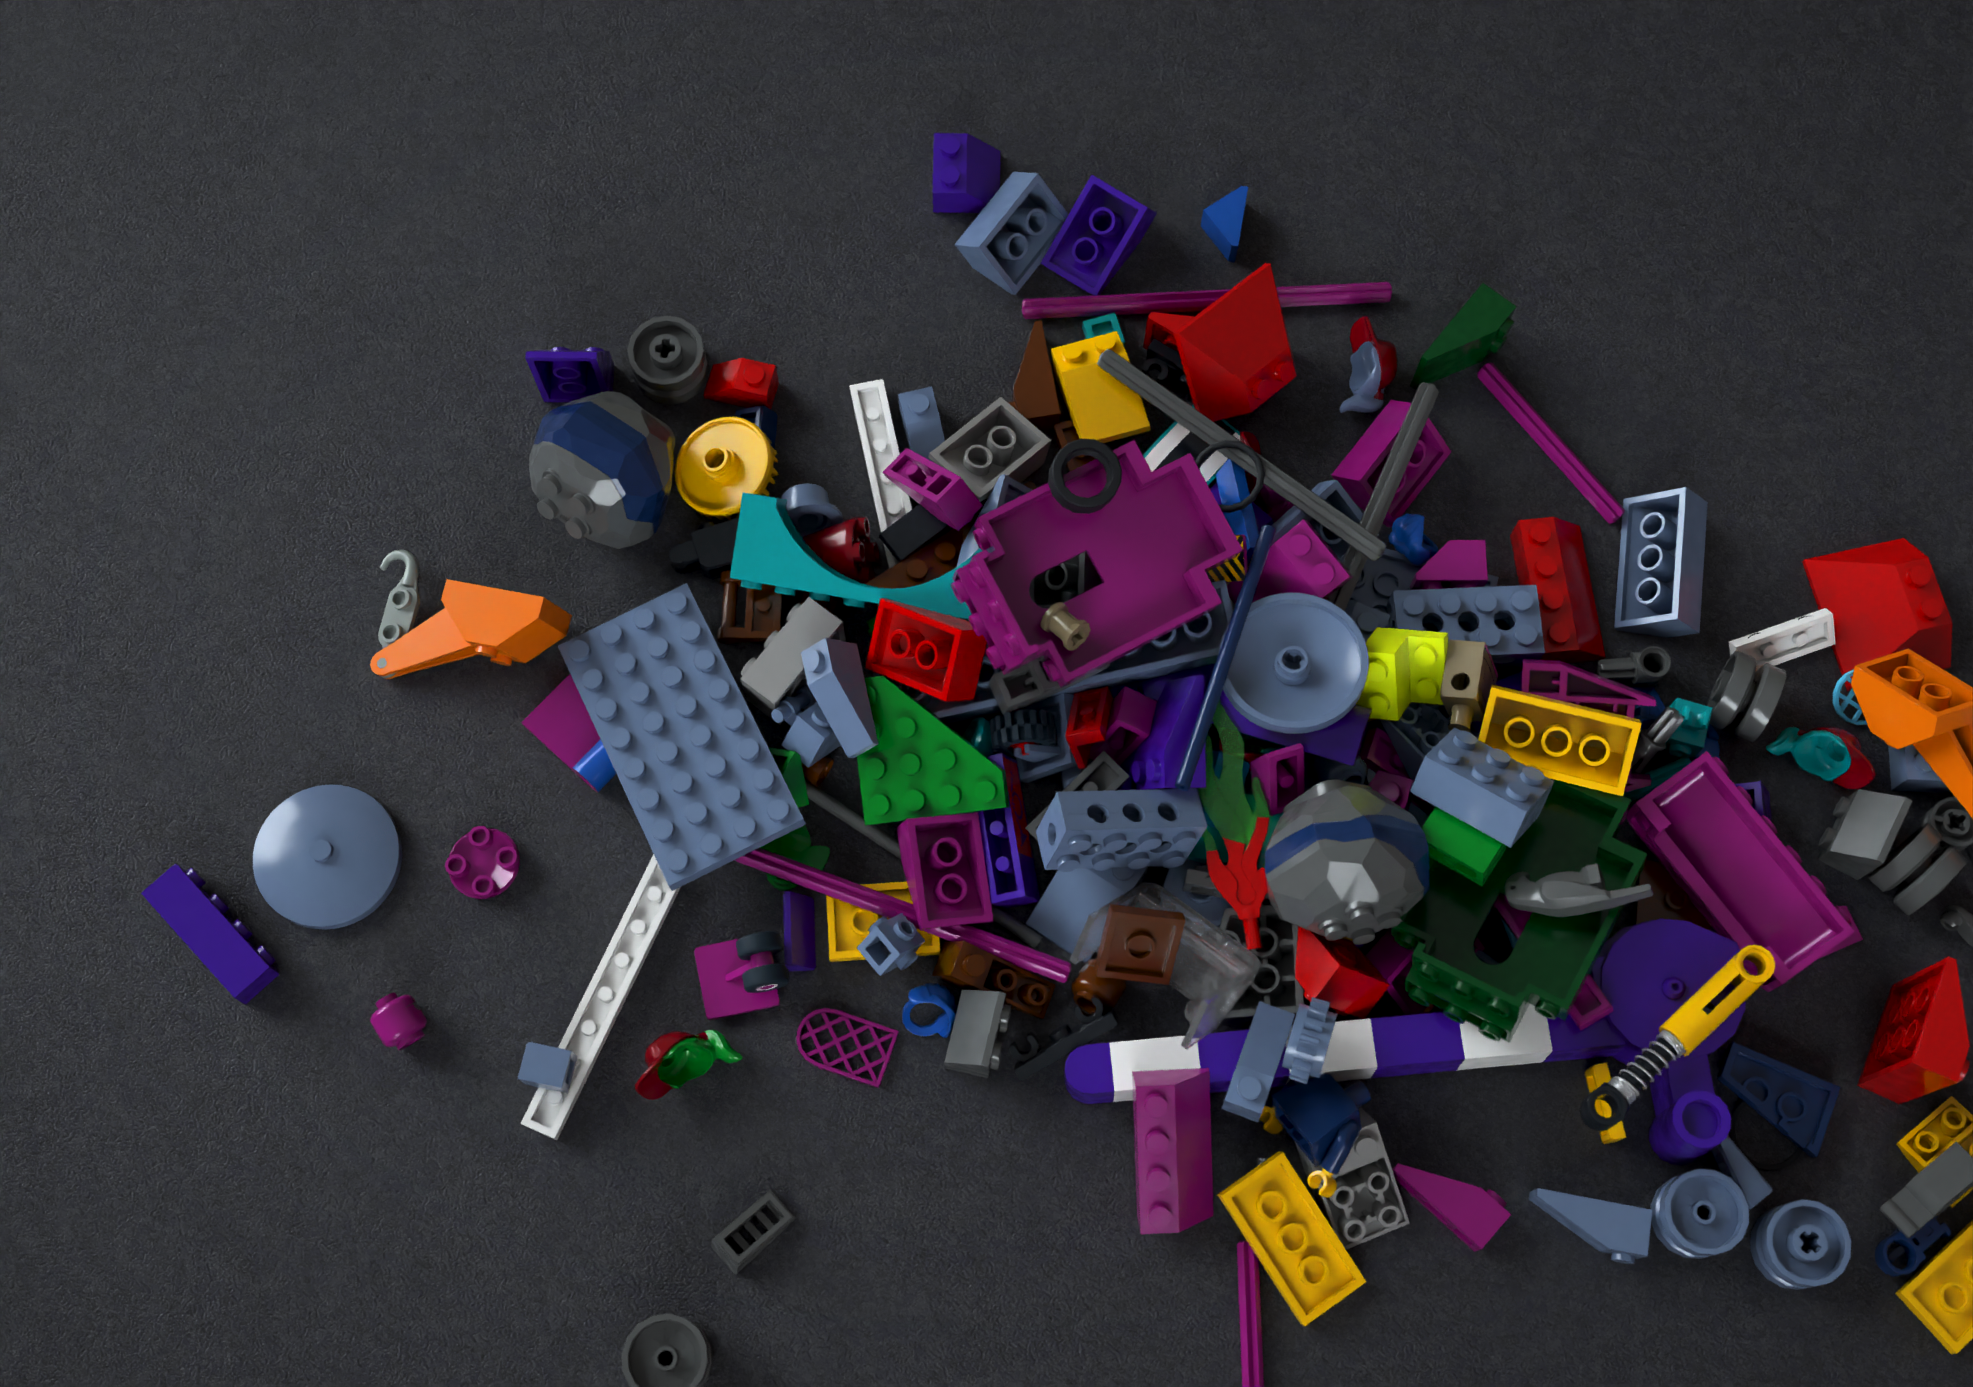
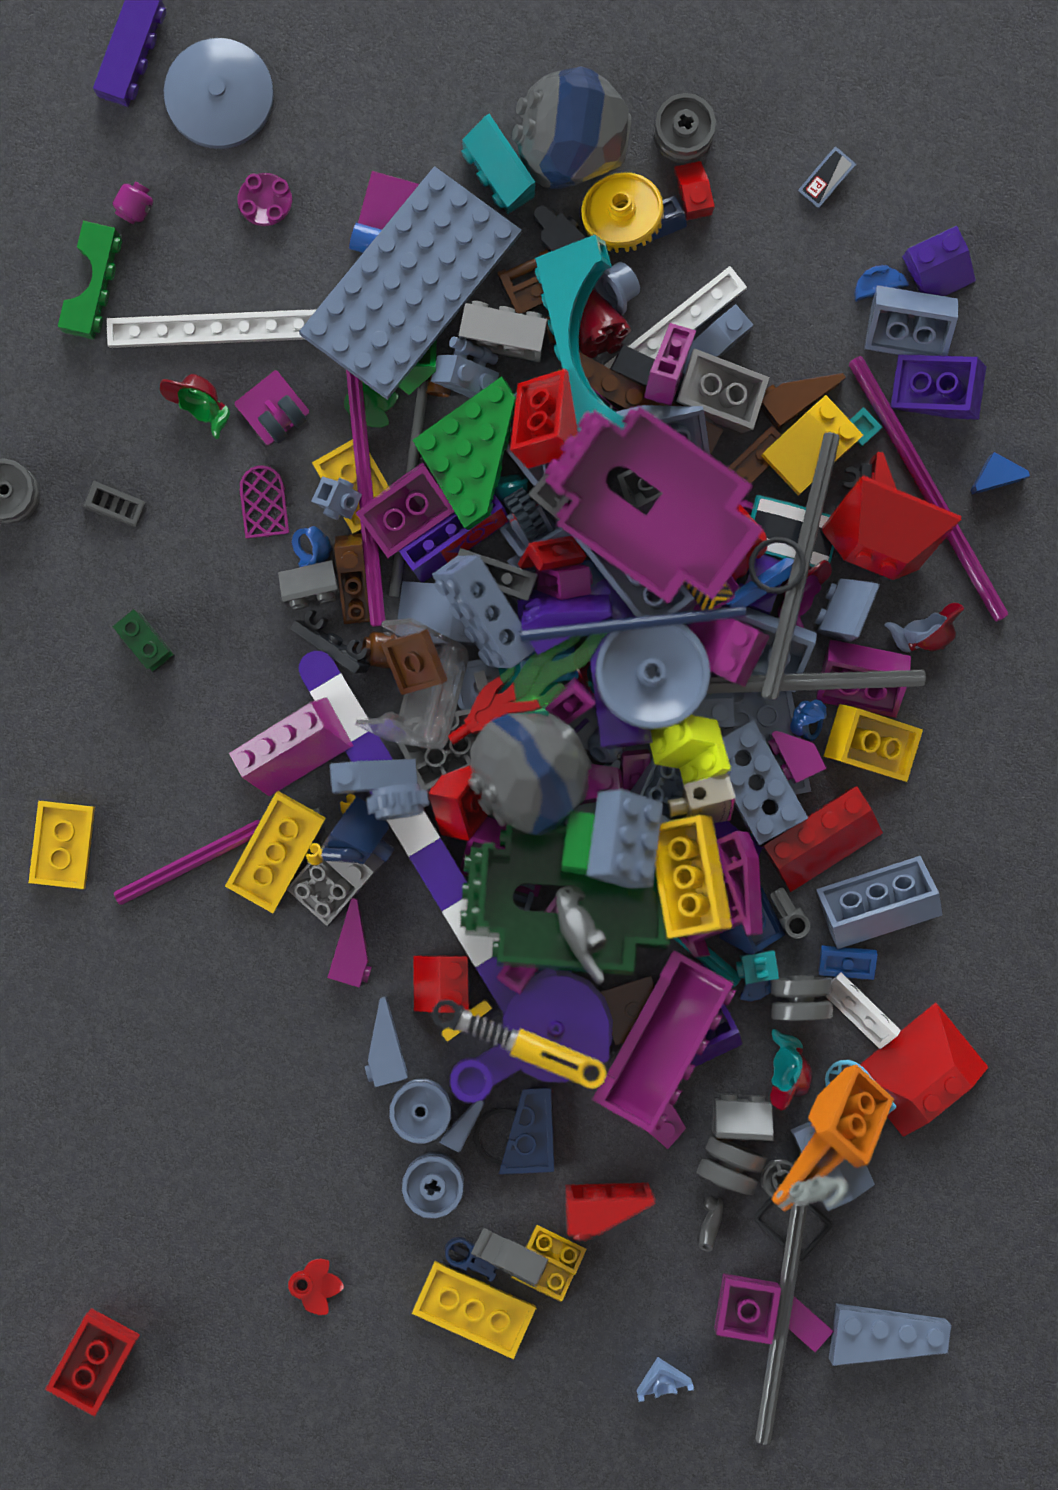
camera: 60 degrees right, 15 degrees up
(473, 623) = (420, 97): orange slope -> none
(496, 1152) = (82, 314): none -> green arch
(547, 1067) = (147, 316): sand blue panel -> none
(571, 374) = (640, 66): dark purple slope -> none
(597, 573) = (498, 165): none -> teal slope
(799, 932) = (321, 433): dark purple slope -> none
(805, 243) = (827, 177): none -> slope
(840, 690) = (489, 373): sand blue slope -> none
(943, 249) = (878, 276): none -> blue tile
(945, 1274) = (143, 640): none -> dark green hips
(1065, 626) = (596, 504): dark tan bush -> none
(1098, 451) = (688, 480): black tyre -> none
(1309, 434) = (846, 609): none -> sand blue slope
(1468, 338) = (988, 690): dark green slope -> none
(1470, 487) = (873, 742): none -> yellow slope
(1543, 1113) = (440, 979): none -> red slope
(1550, 443) = (937, 784): magenta axle -> none
(1655, 737) = (734, 946): dark grey axle -> none
(1719, 626) = (848, 961): none -> blue plate

